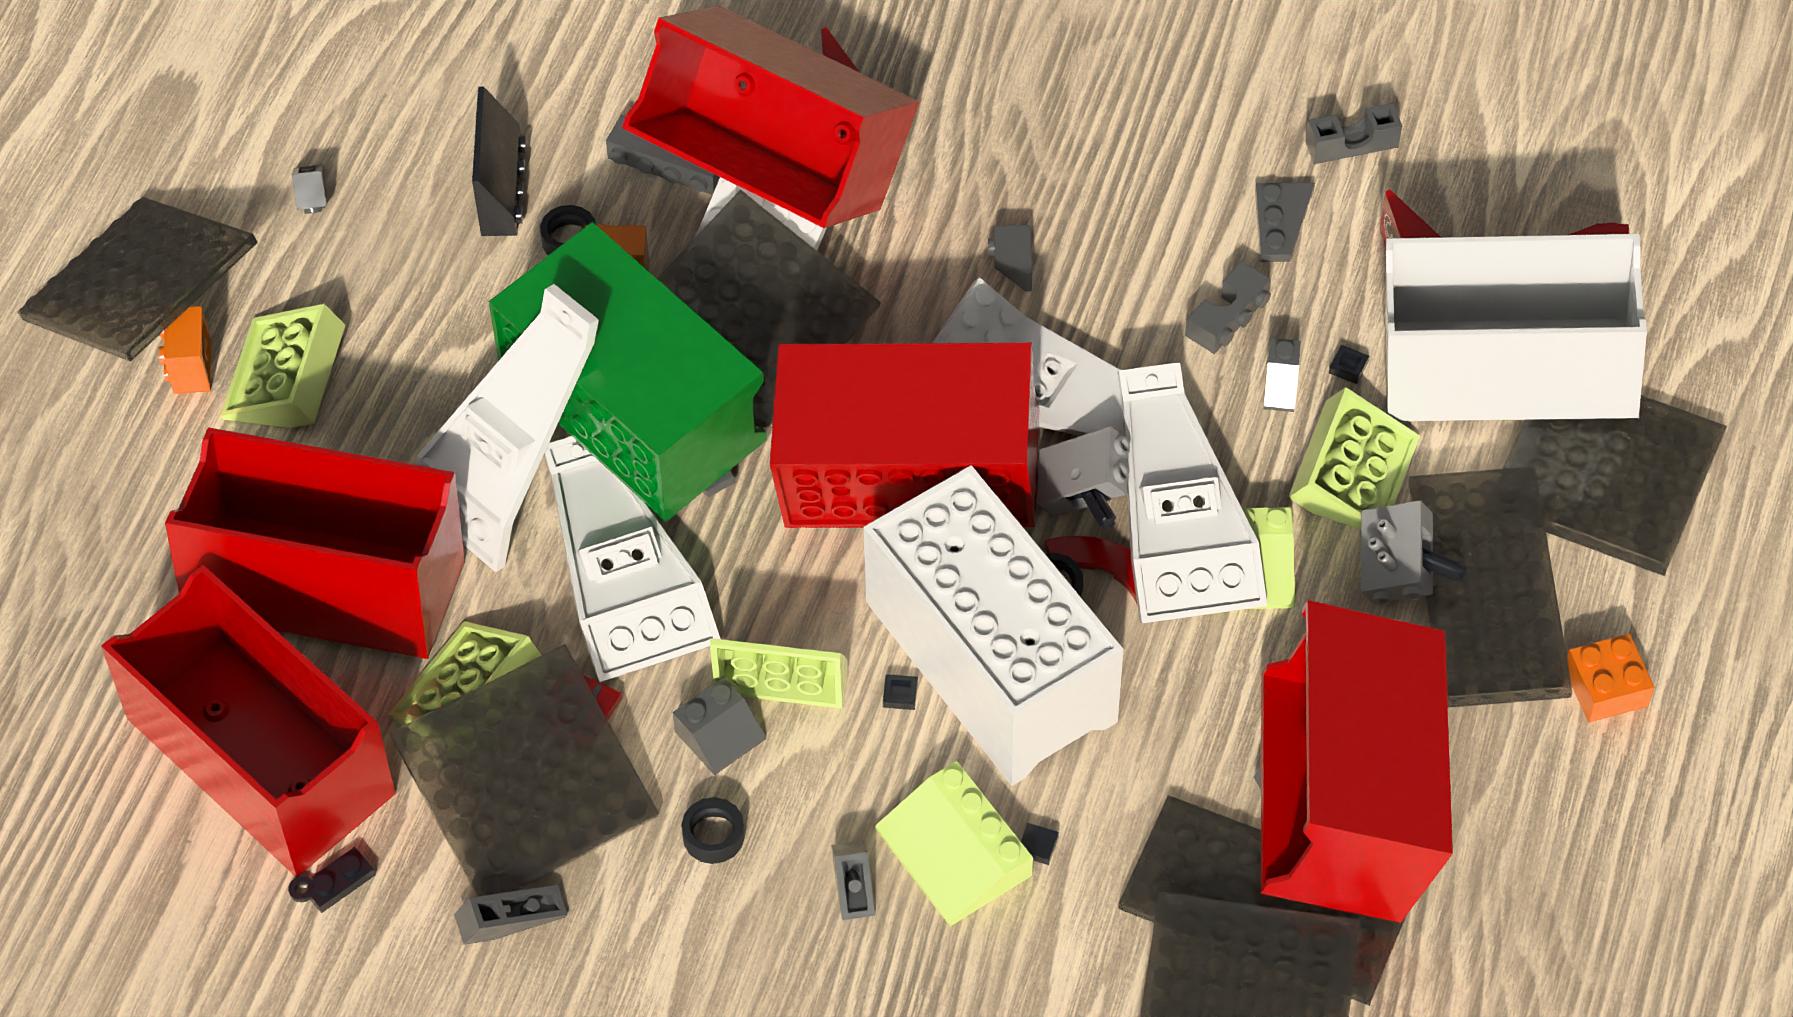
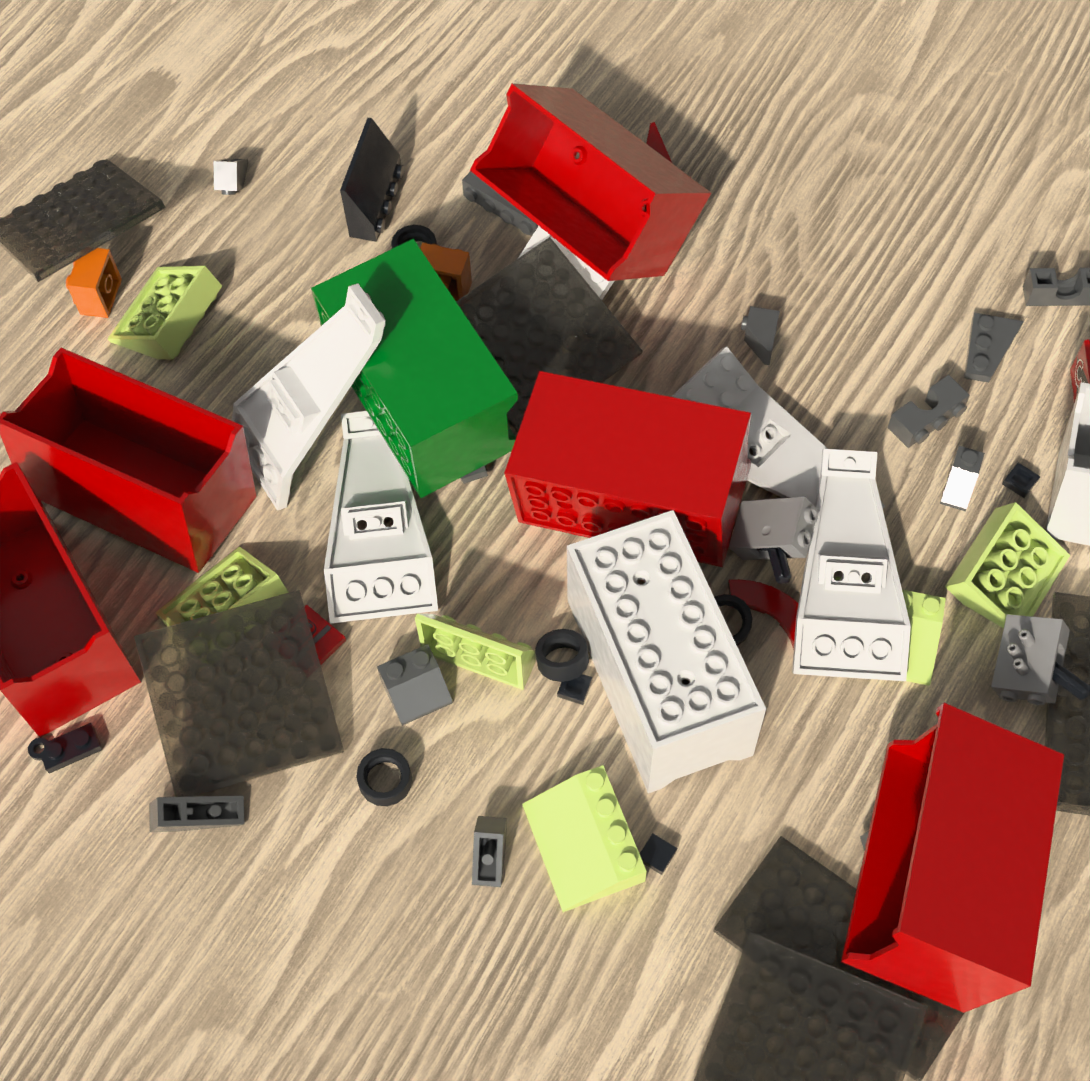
camera: 15 degrees right, 5 degrees up
(877, 675) = (565, 670): none -> black tyre

